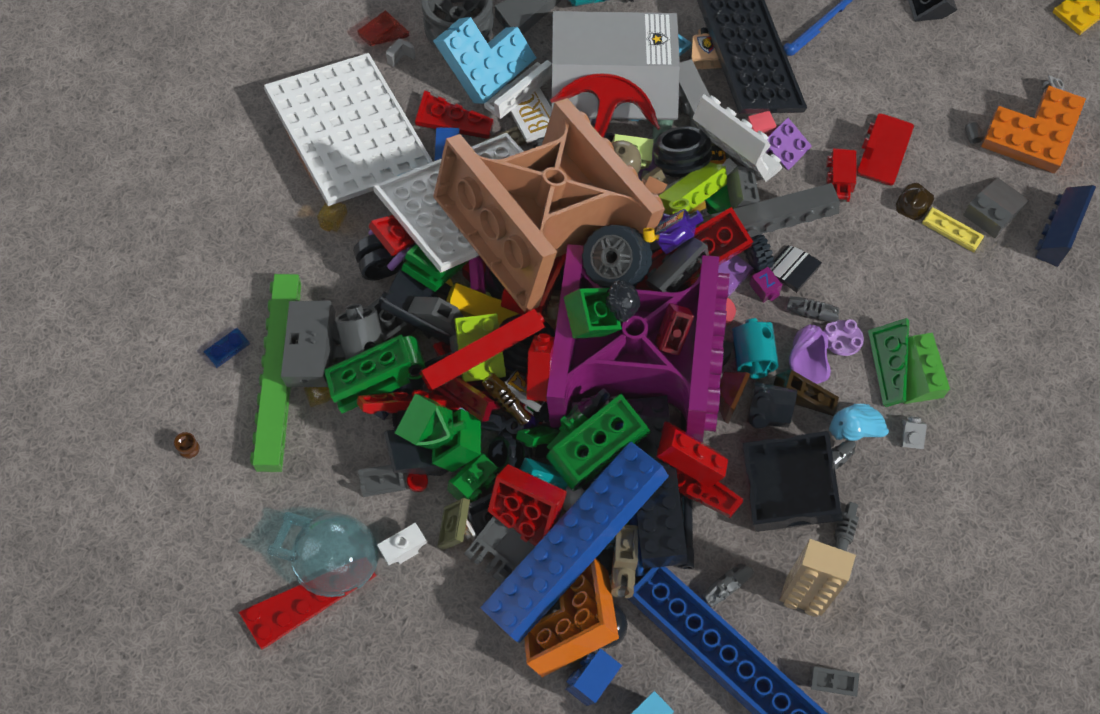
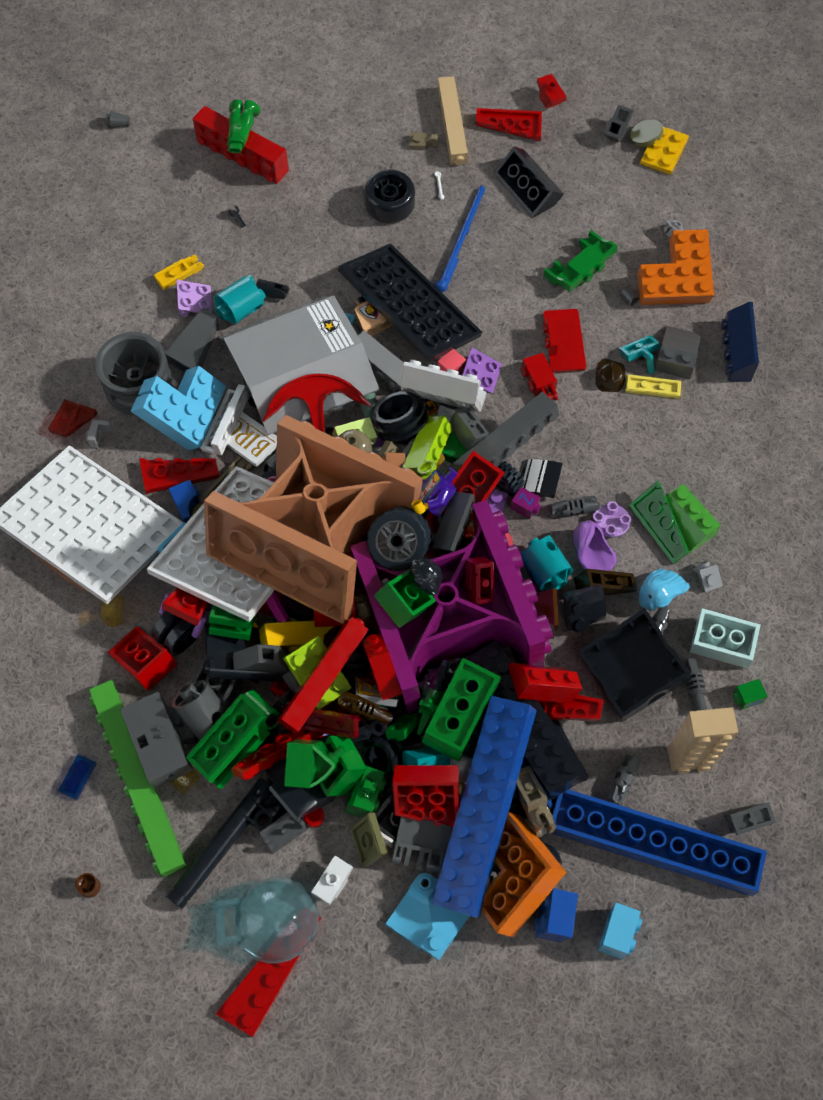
camera: 25 degrees left, 0 degrees up
(336, 269) = (142, 658): none -> red slope
(363, 447) = (255, 805): none -> black piece
(468, 626) = (424, 923): none -> medium azure slope
(895, 563) = (749, 694): none -> green brick
(897, 498) = (725, 638): none -> light aqua brick
(941, 85) = (584, 265): none -> green bracket
(960, 187) = (639, 348): none -> teal plate

